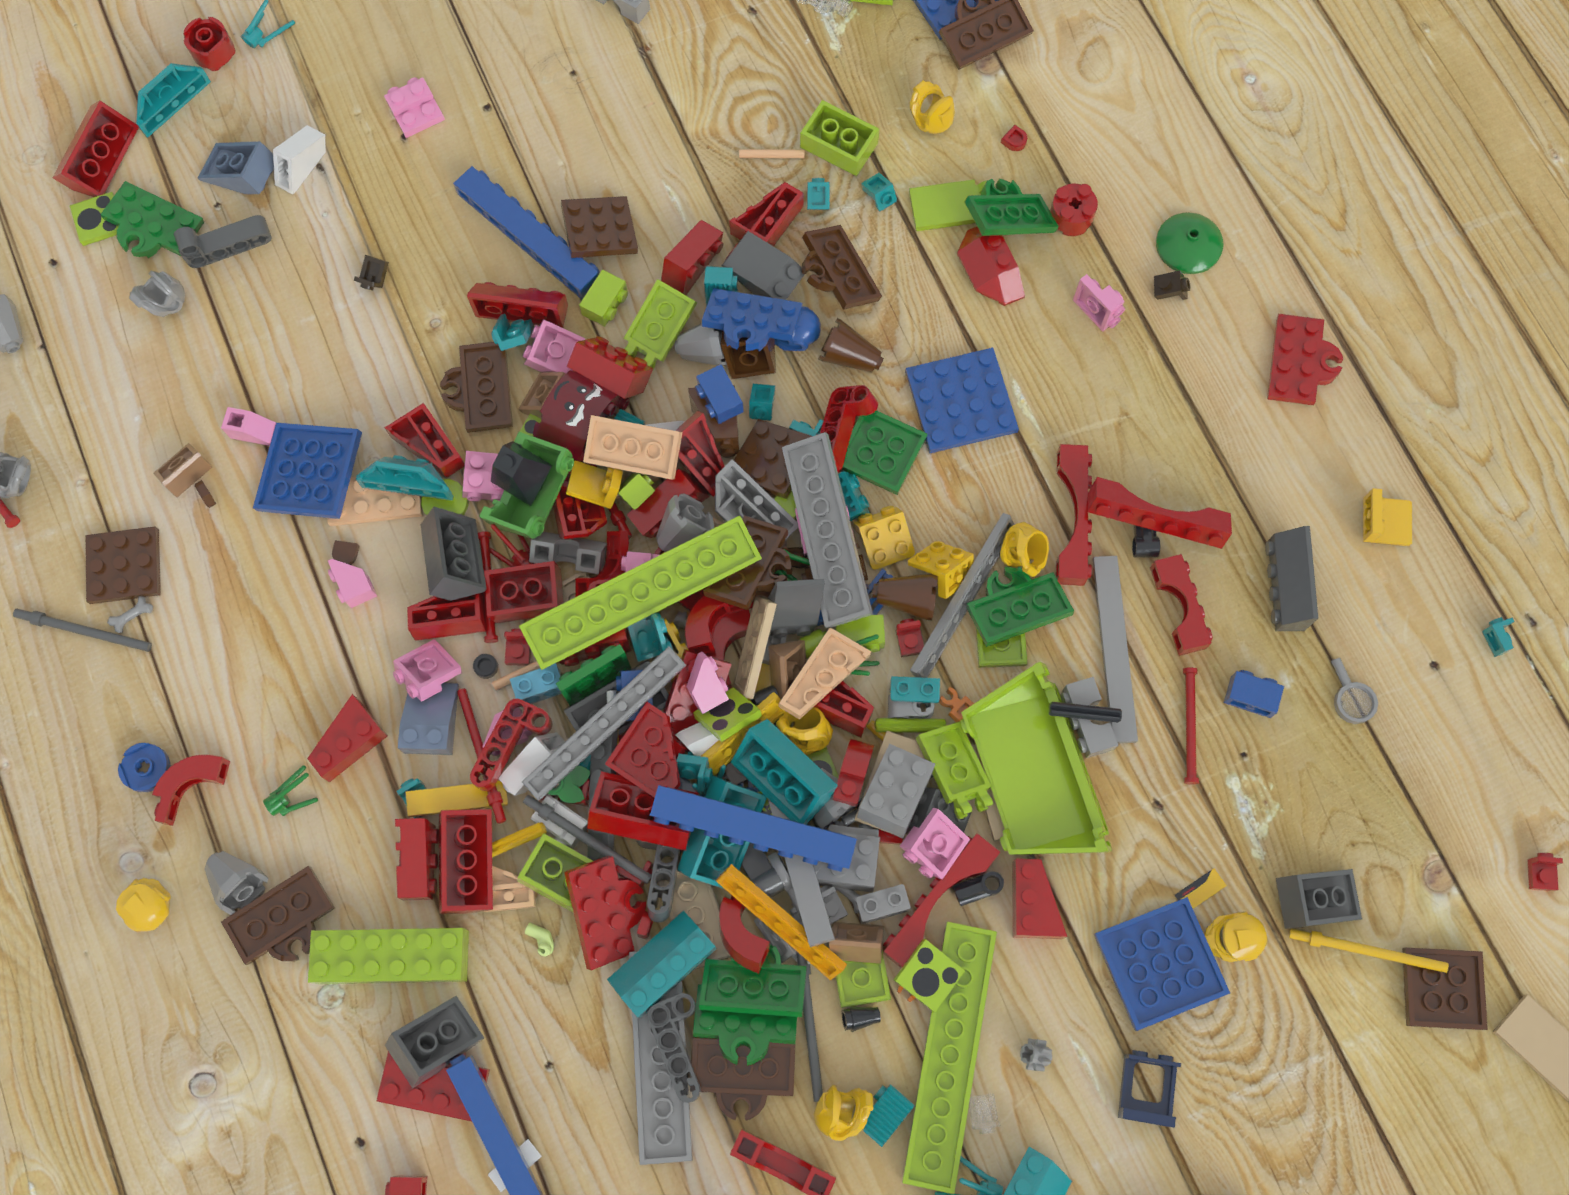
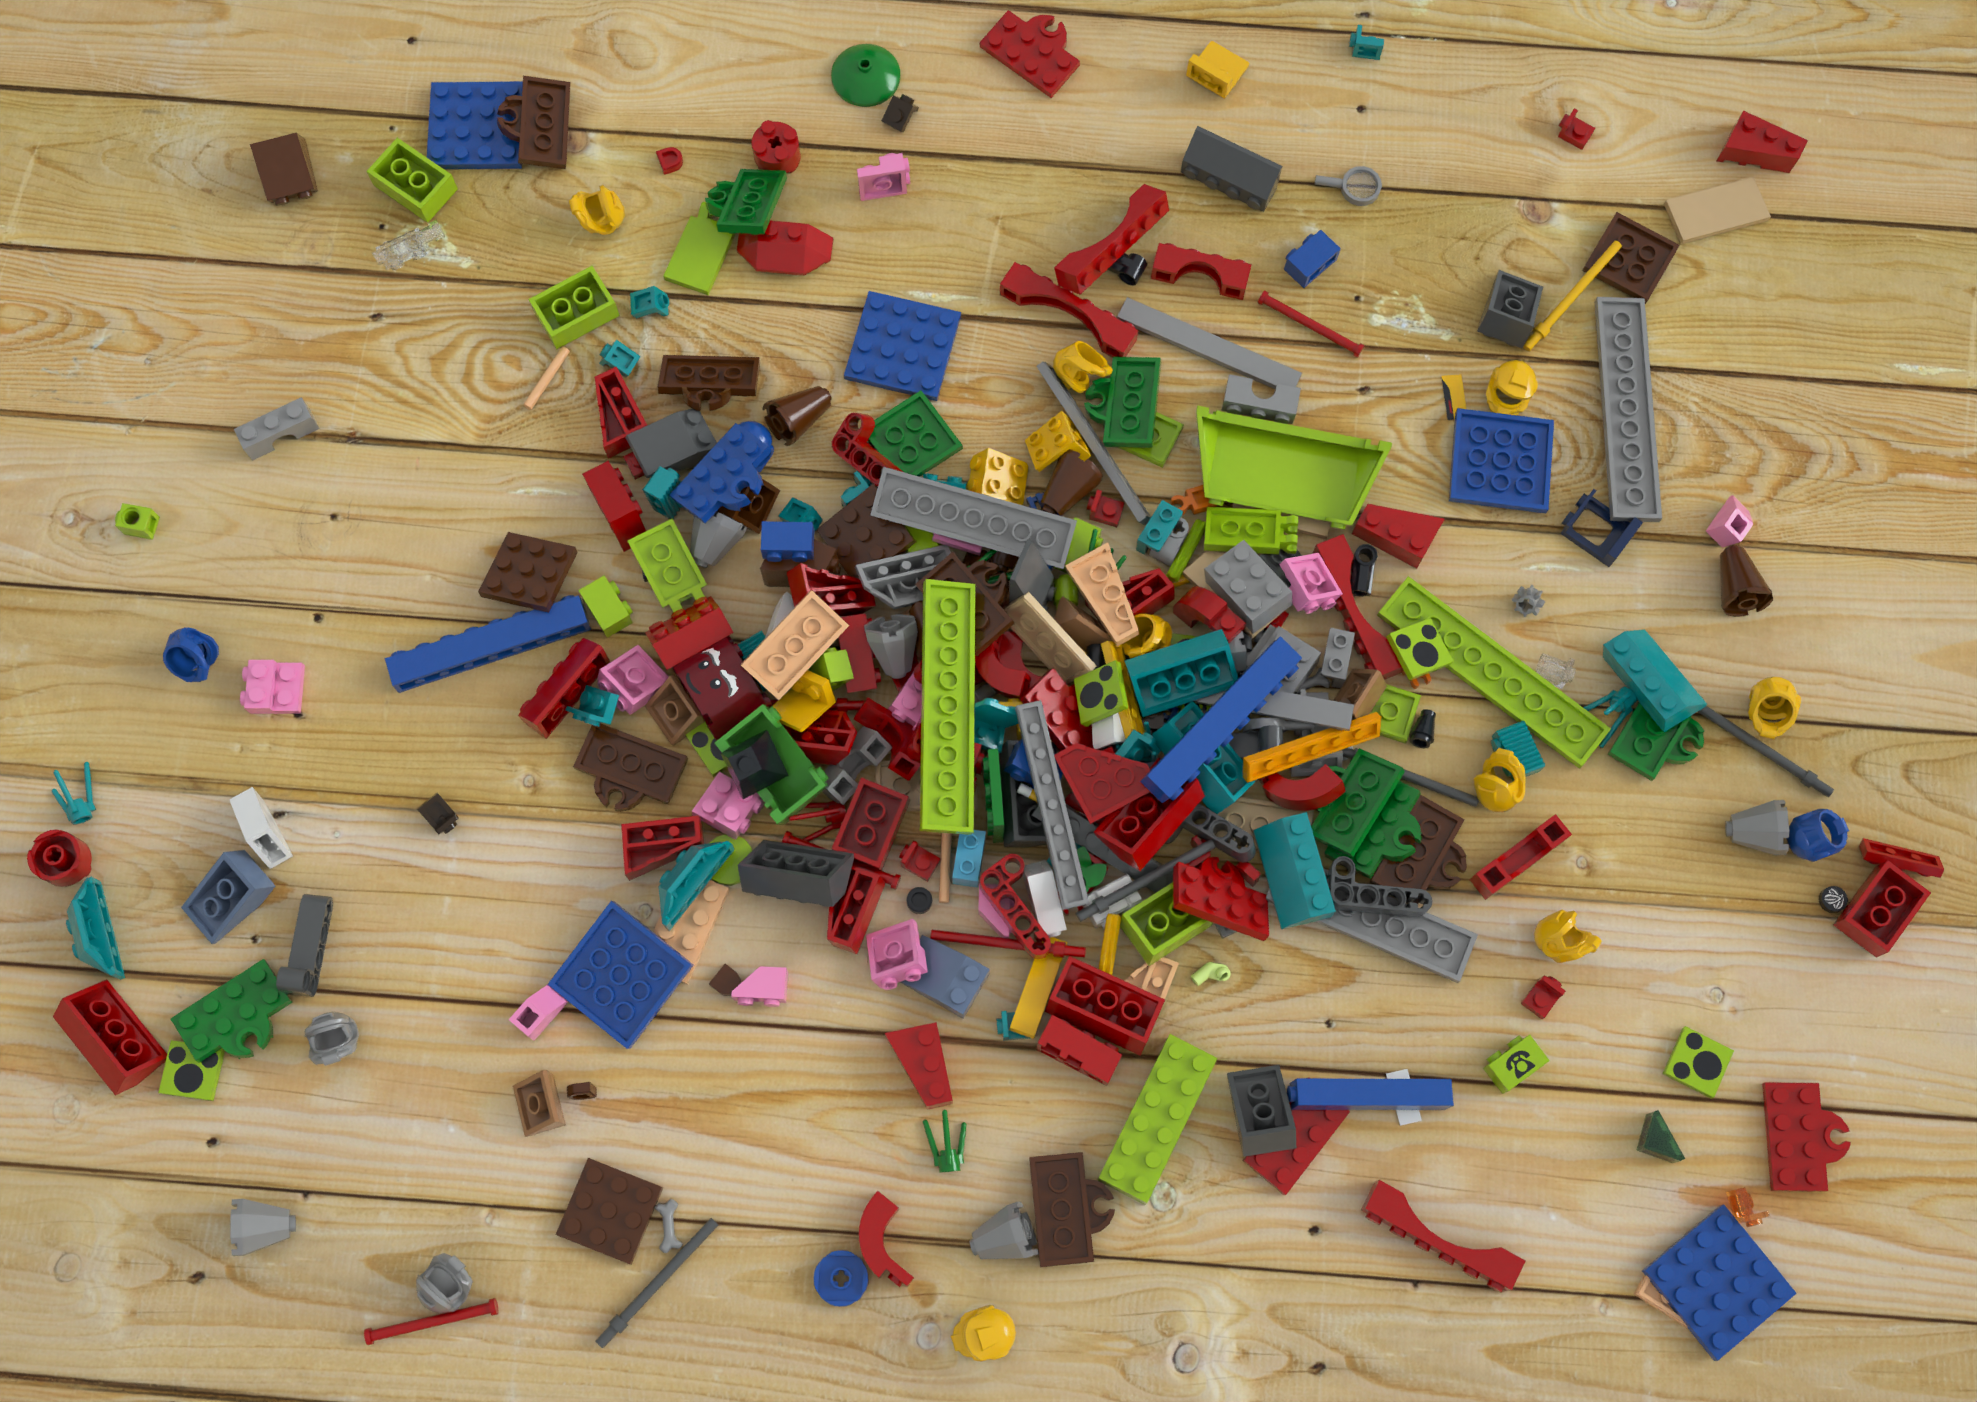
camera: 65 degrees left, 0 degrees up
(405, 33) = (190, 650): none -> blue helmet
(704, 684) = (1063, 696): bright pink slope -> none
(1085, 712) = (1258, 397): black axle -> none
(1284, 1059) = (1627, 409): none -> light grey plate

